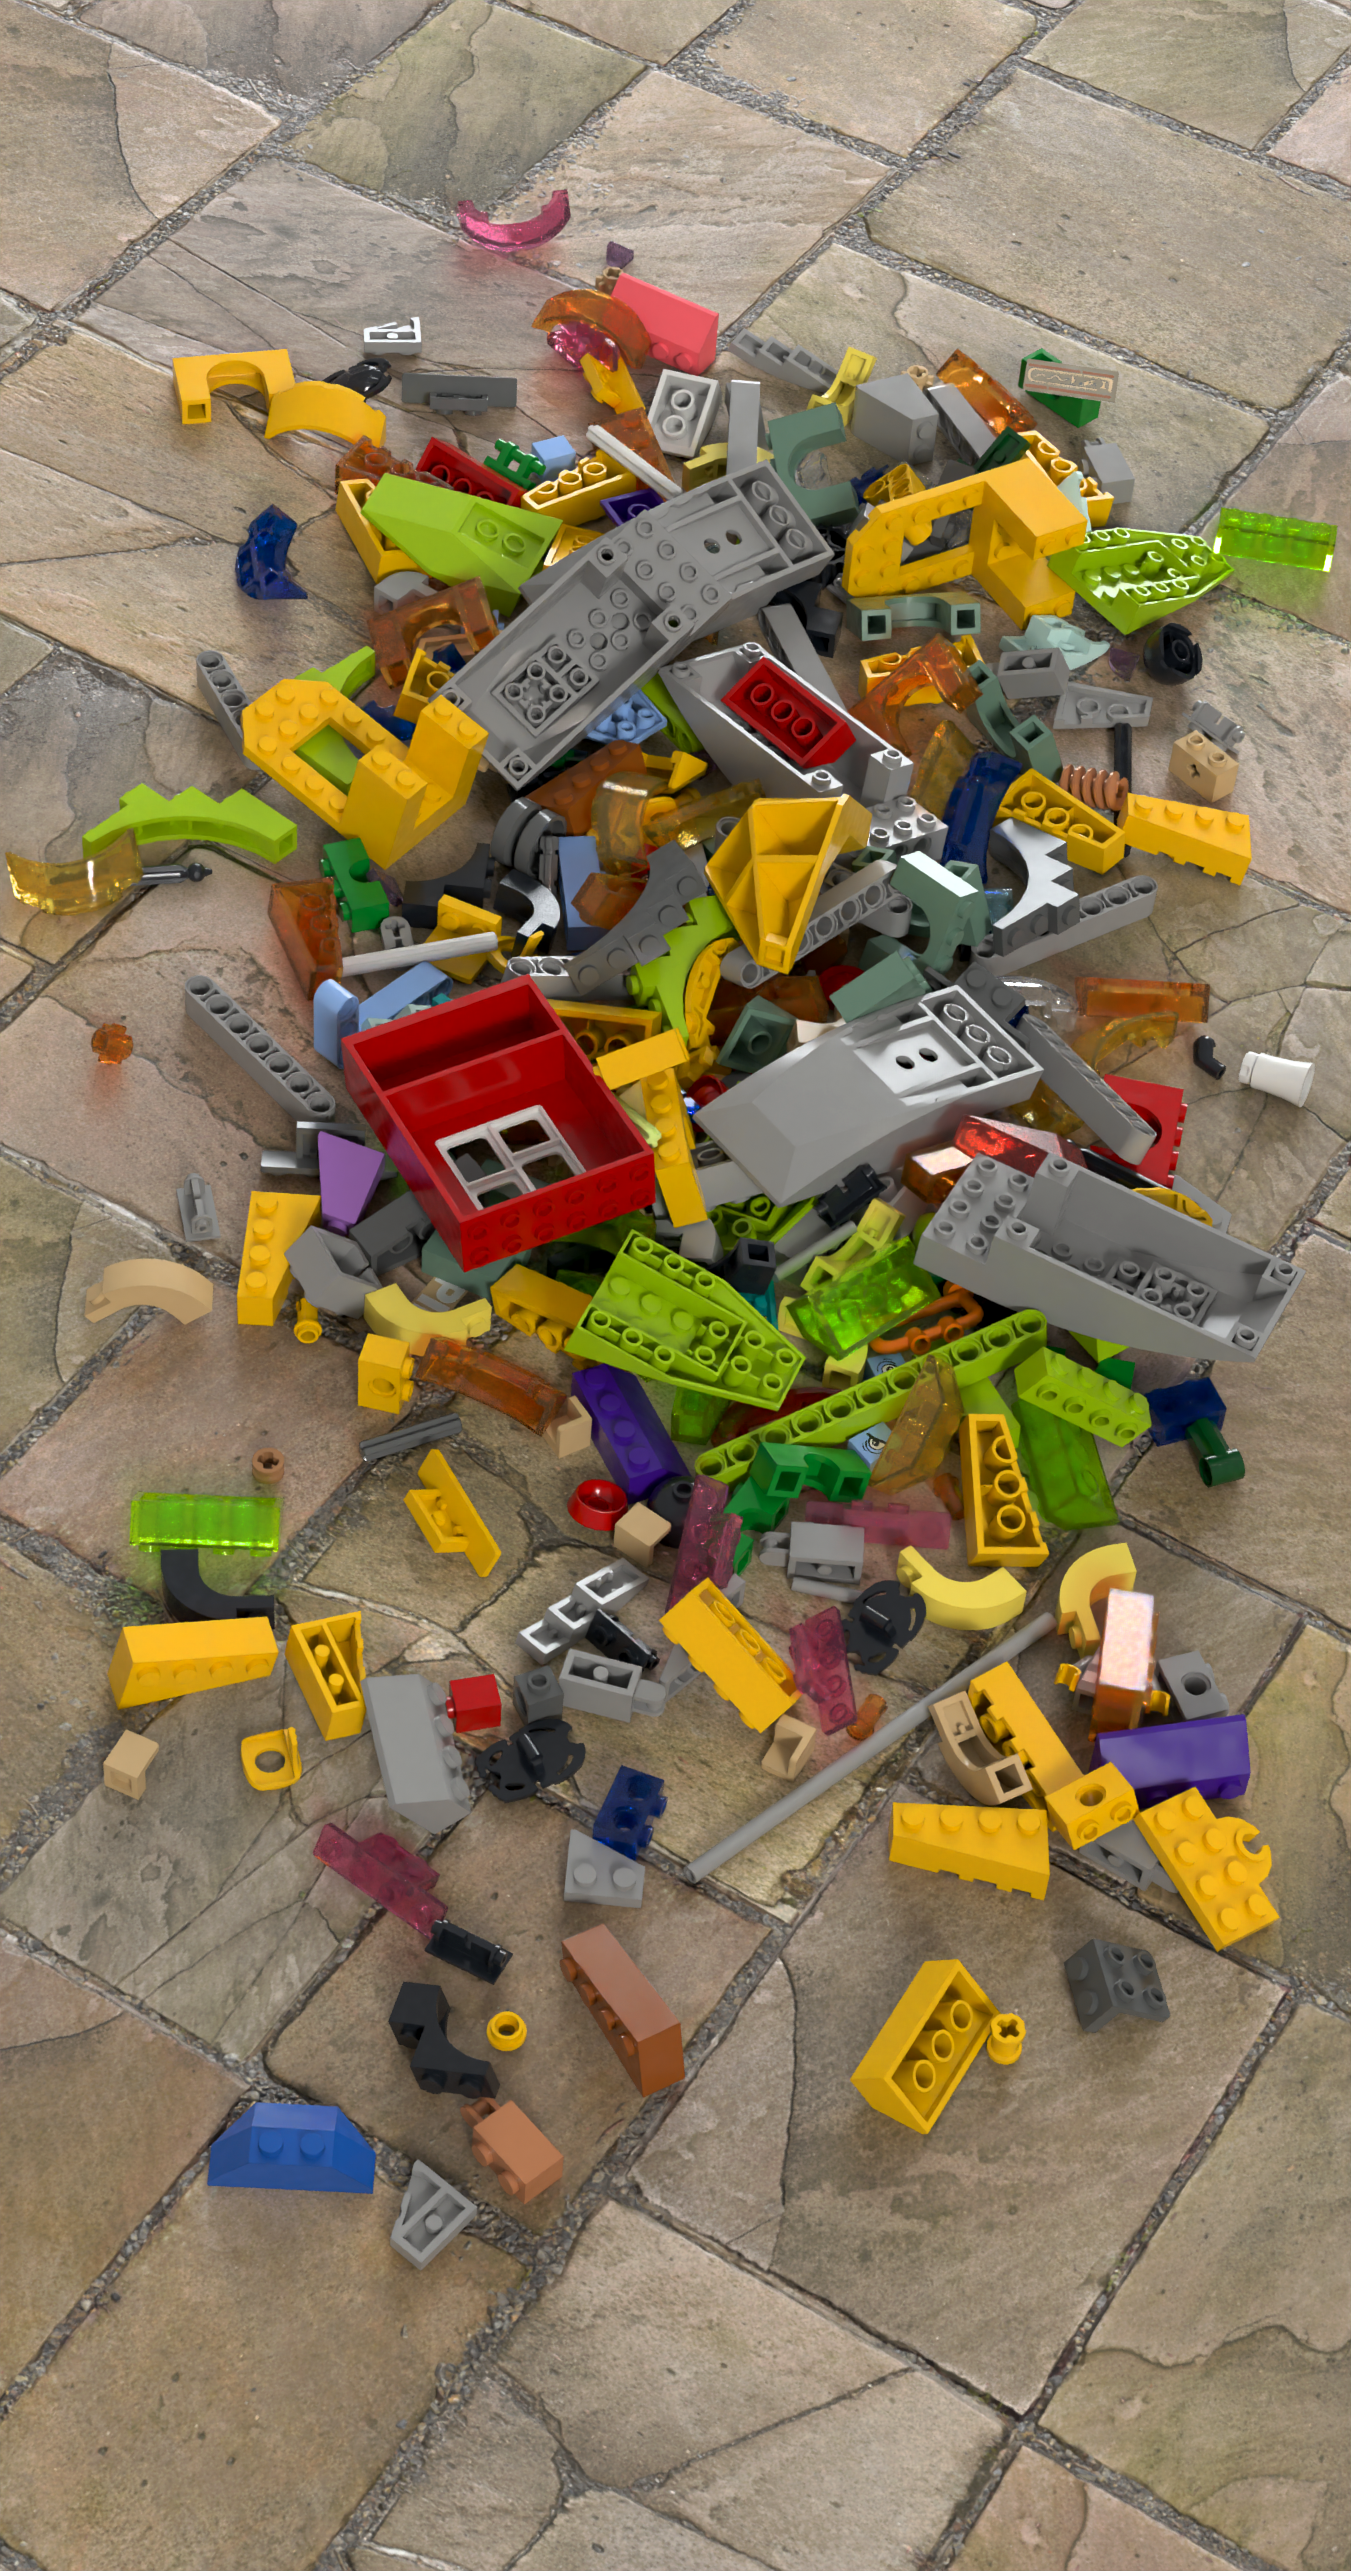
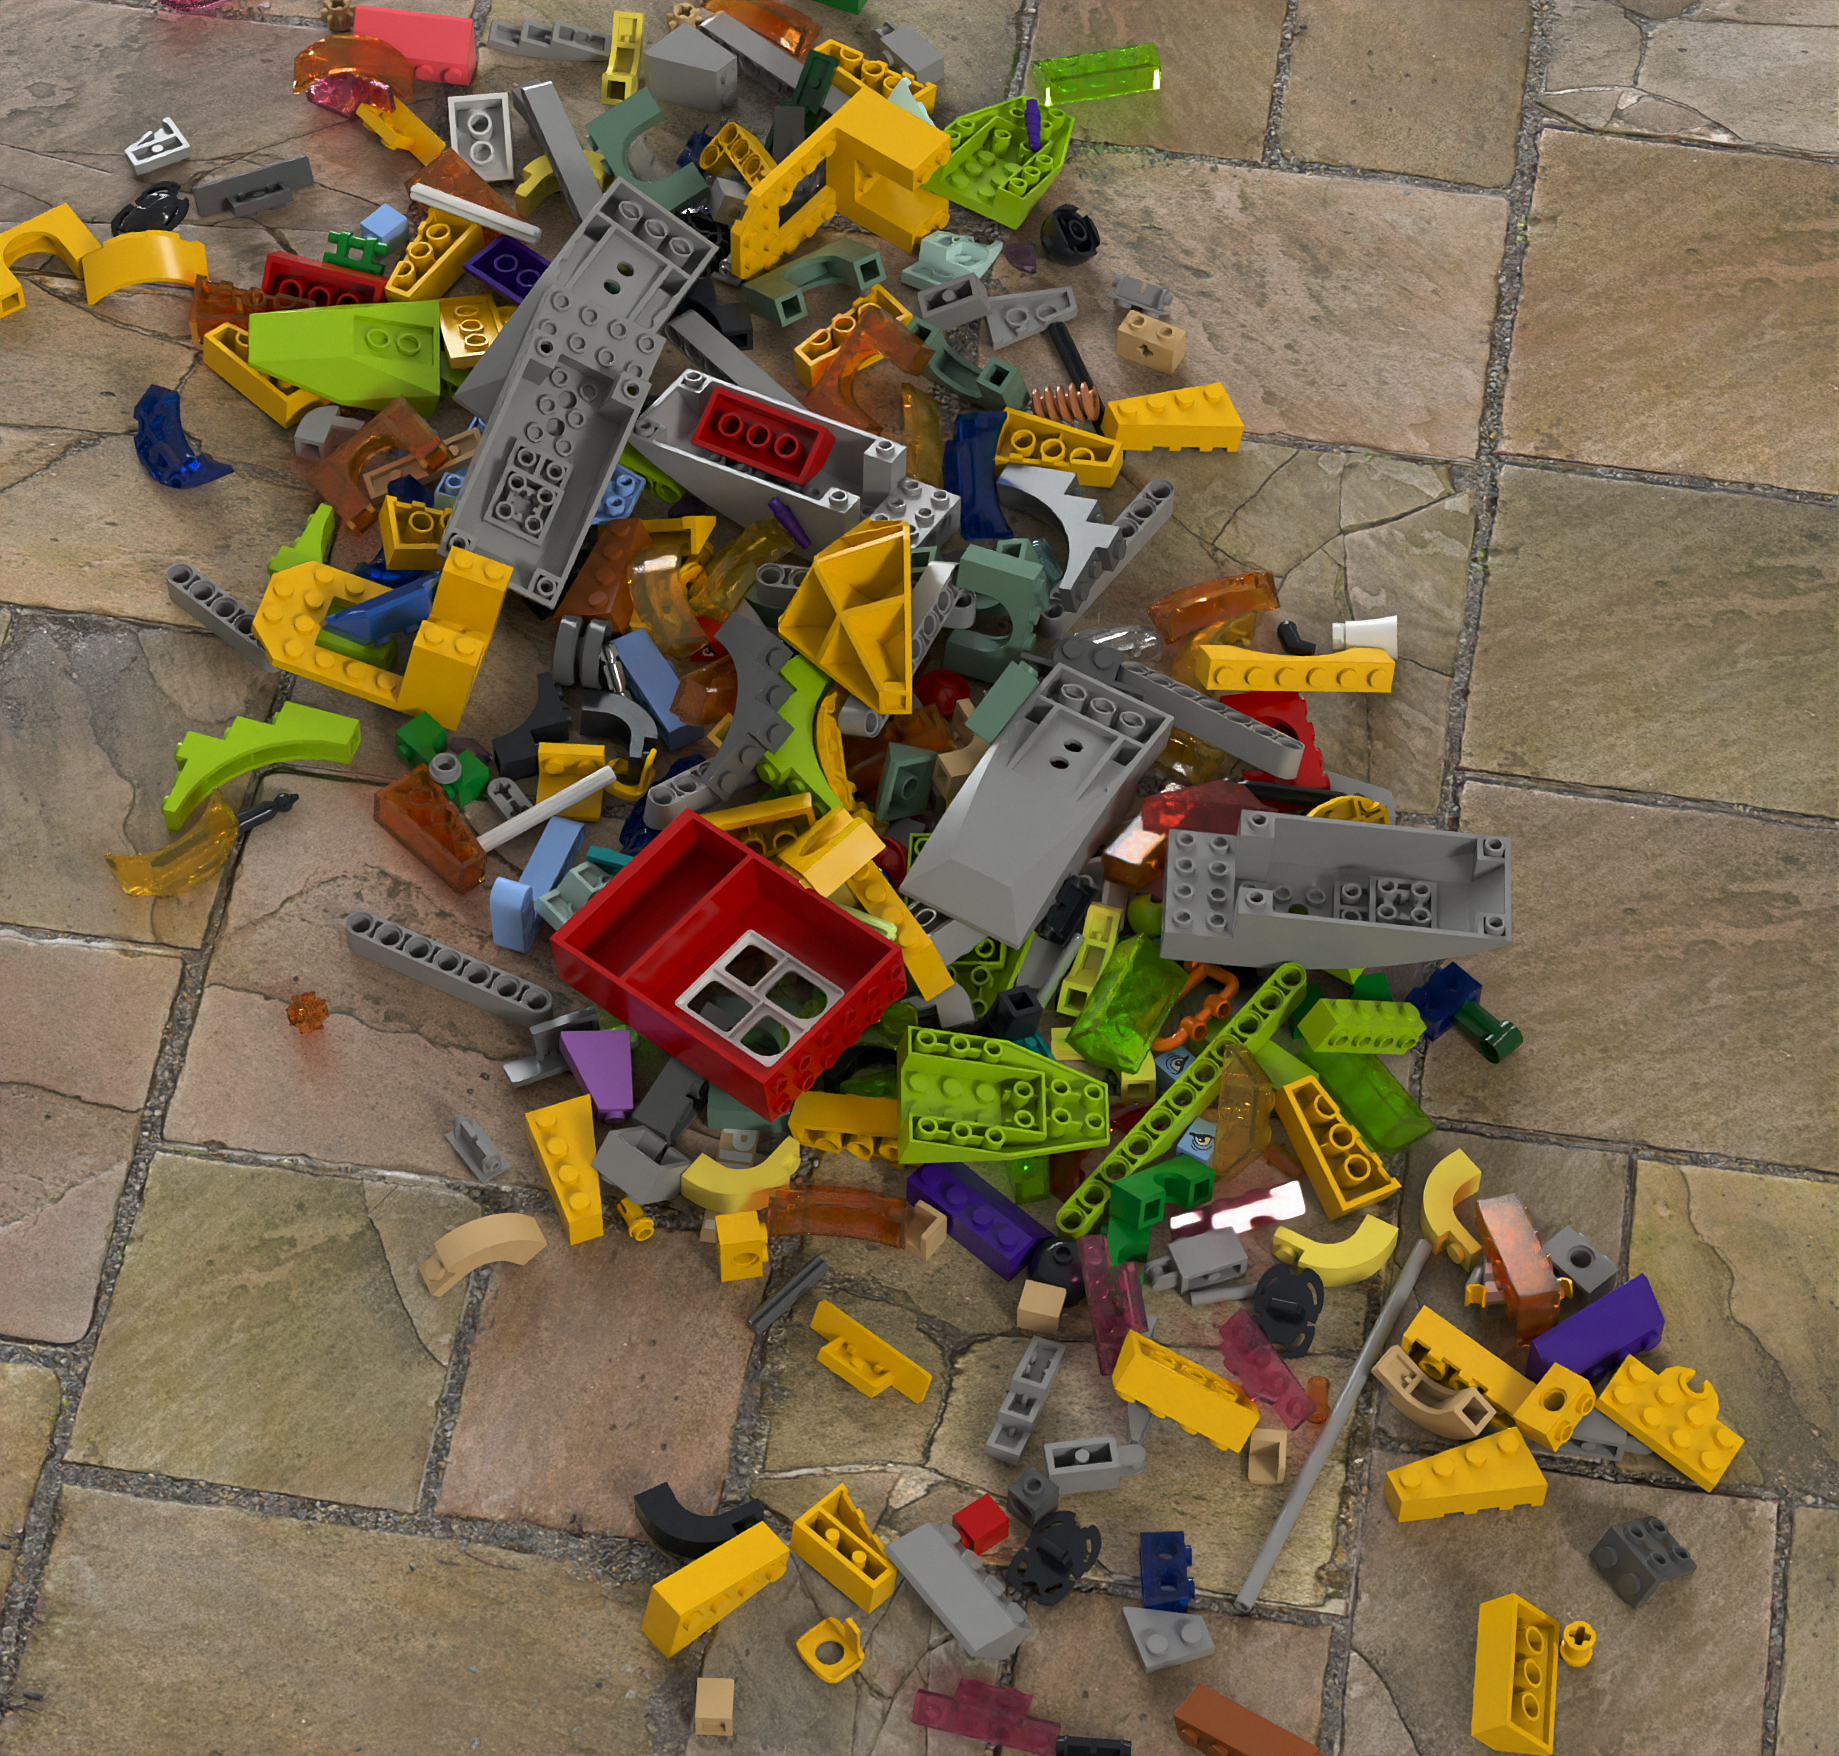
camera: 20 degrees left, 5 degrees up
(206, 1522) = (654, 1450): clear neon green slope -> none
(268, 1455) = (668, 1380): medium nougat bush -> none
(347, 743) = (386, 614): none -> blue wedge
(347, 886) = (445, 768): none -> light grey plate
(602, 1494) = (987, 1294): red hat -> none
(616, 1642) = (1069, 1418): black hinge -> none
(768, 780) = (789, 522): none -> dark purple animal
(1187, 553) = (1032, 121): none -> dark purple animal
(1233, 1092) = (1243, 669): none -> yellow arch

